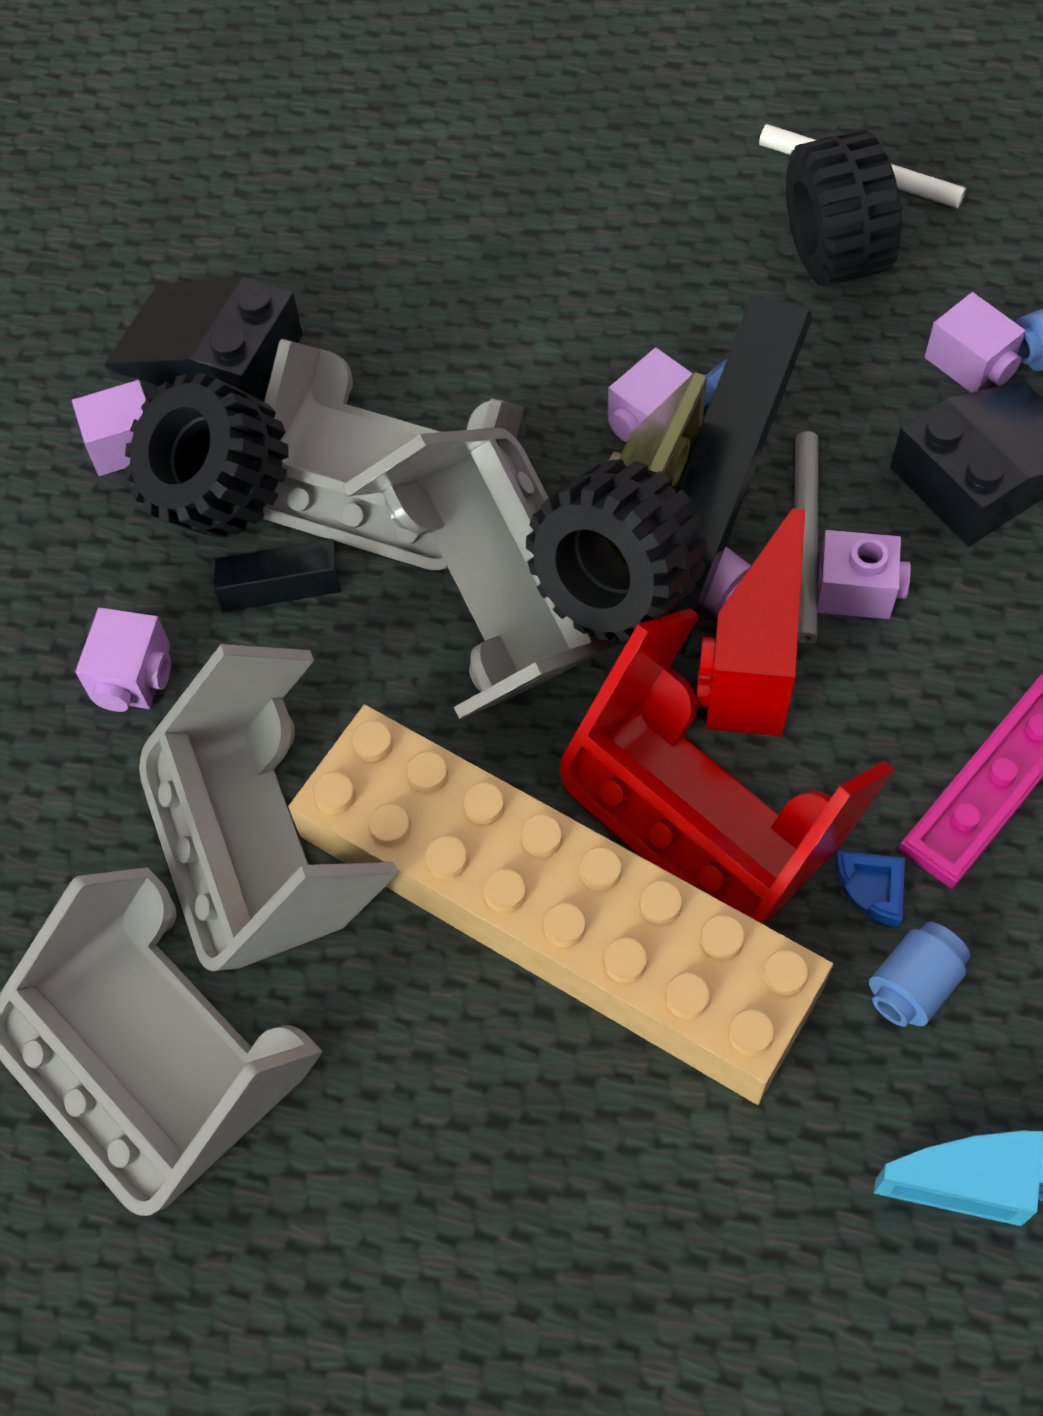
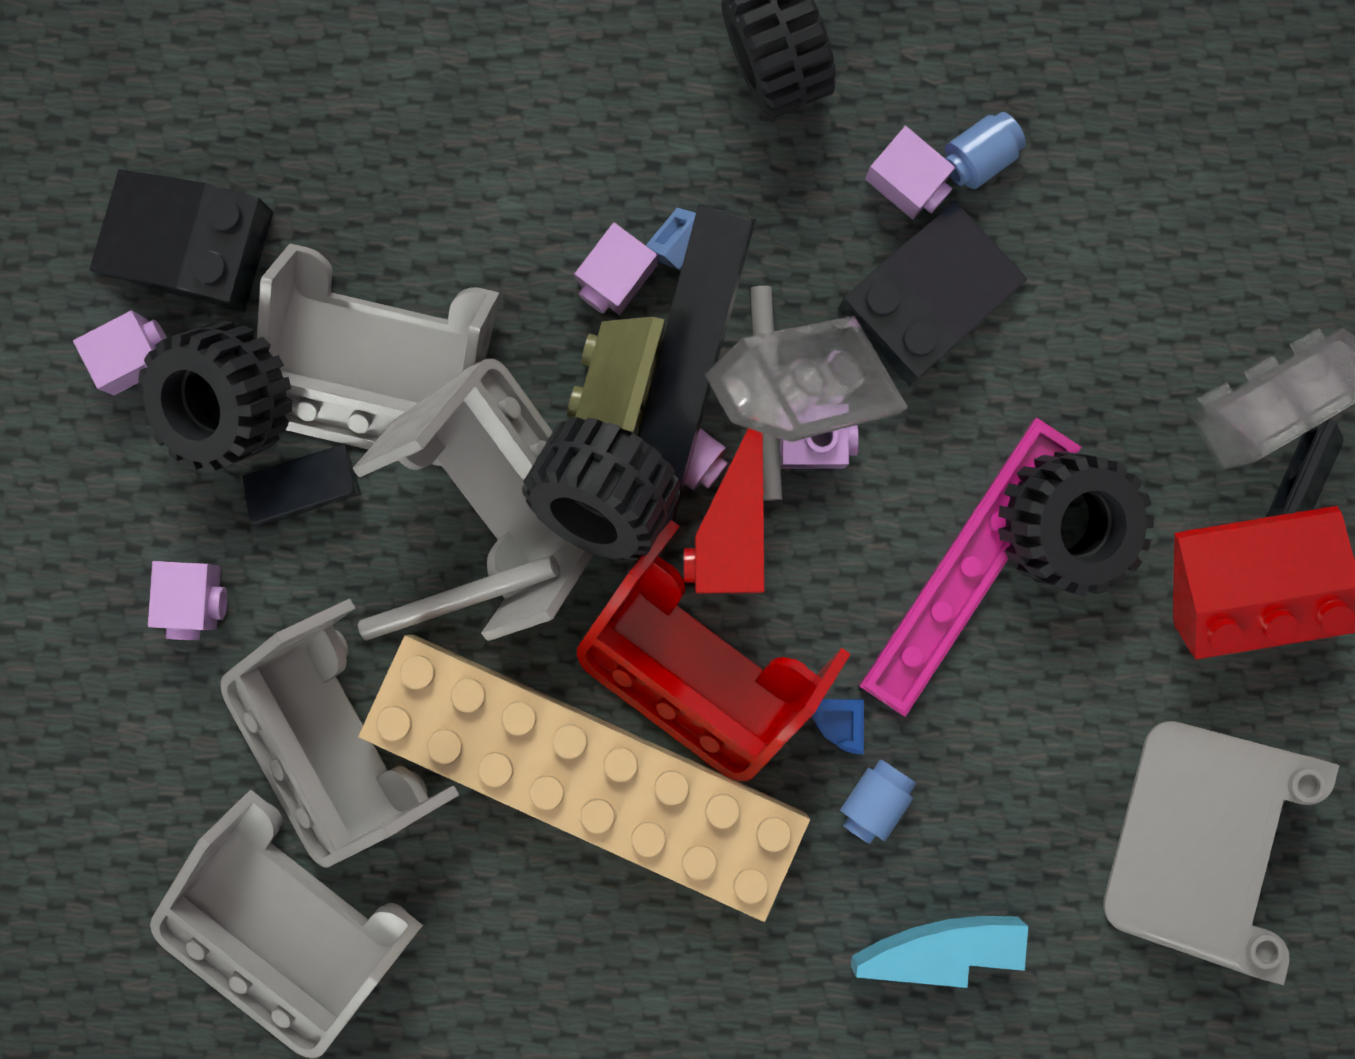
camera: 15 degrees left, 25 degrees up
(435, 682) = (459, 597): none -> light grey piece
(849, 481) = (805, 381): none -> clear slope

